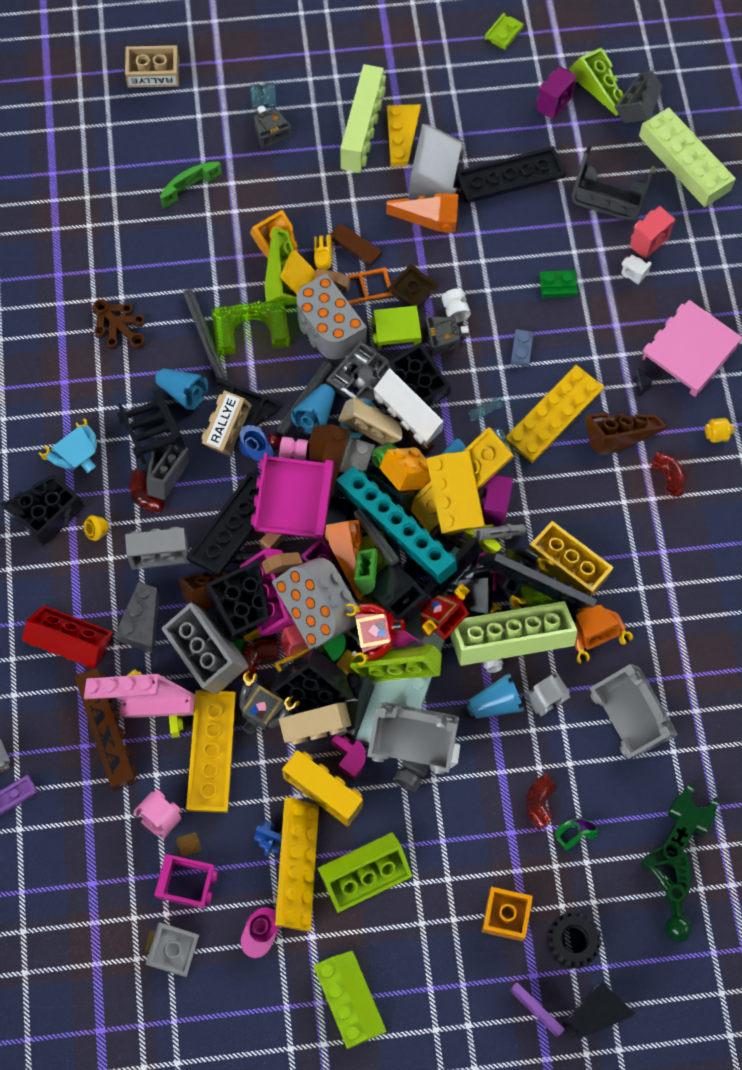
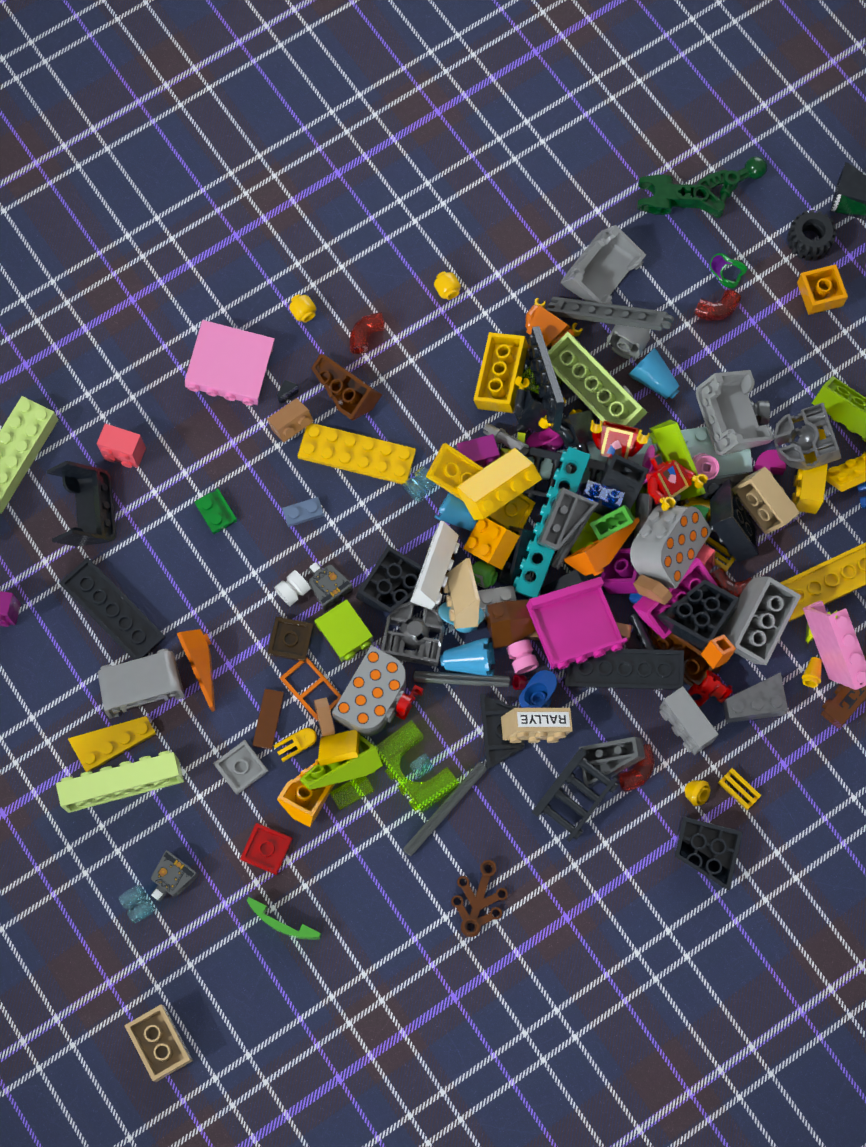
camera: 115 degrees left, 5 degrees up
(64, 577) = (743, 782): none -> yellow tile
(67, 636) = (808, 756): red slope -> none
(74, 449) = (634, 856): medium azure torso -> none
(176, 575) = (710, 685): none -> red piece
(183, 387) = (516, 795): dark azure cone -> none
(195, 590) = (718, 651): none -> orange brick
(248, 331) = (421, 766): none -> clear light blue slope
(252, 199) = (266, 849): none -> red tile
(258, 272) = (351, 792): none -> clear neon green tile
(261, 706) = (773, 554): dark grey torso -> none
(306, 337) = (404, 703): none -> red piece
(328, 209) = (240, 767): none -> light grey tile
(345, 784) = (825, 450): none -> flat silver connector
(379, 686) = (706, 465): none -> bright pink wheel
(389, 522) = (565, 516): none -> flat silver wedge
(394, 569) = (610, 497): none -> clear blue hinge
(485, 408) = (384, 513): clear light blue axle -> none
(576, 681) = (610, 313): none -> dark grey hinge
(611, 370) = (290, 420): none -> medium nougat brick
(635, 268) = (165, 447): white brick -> none
(683, 562) = (447, 285): none -> yellow head

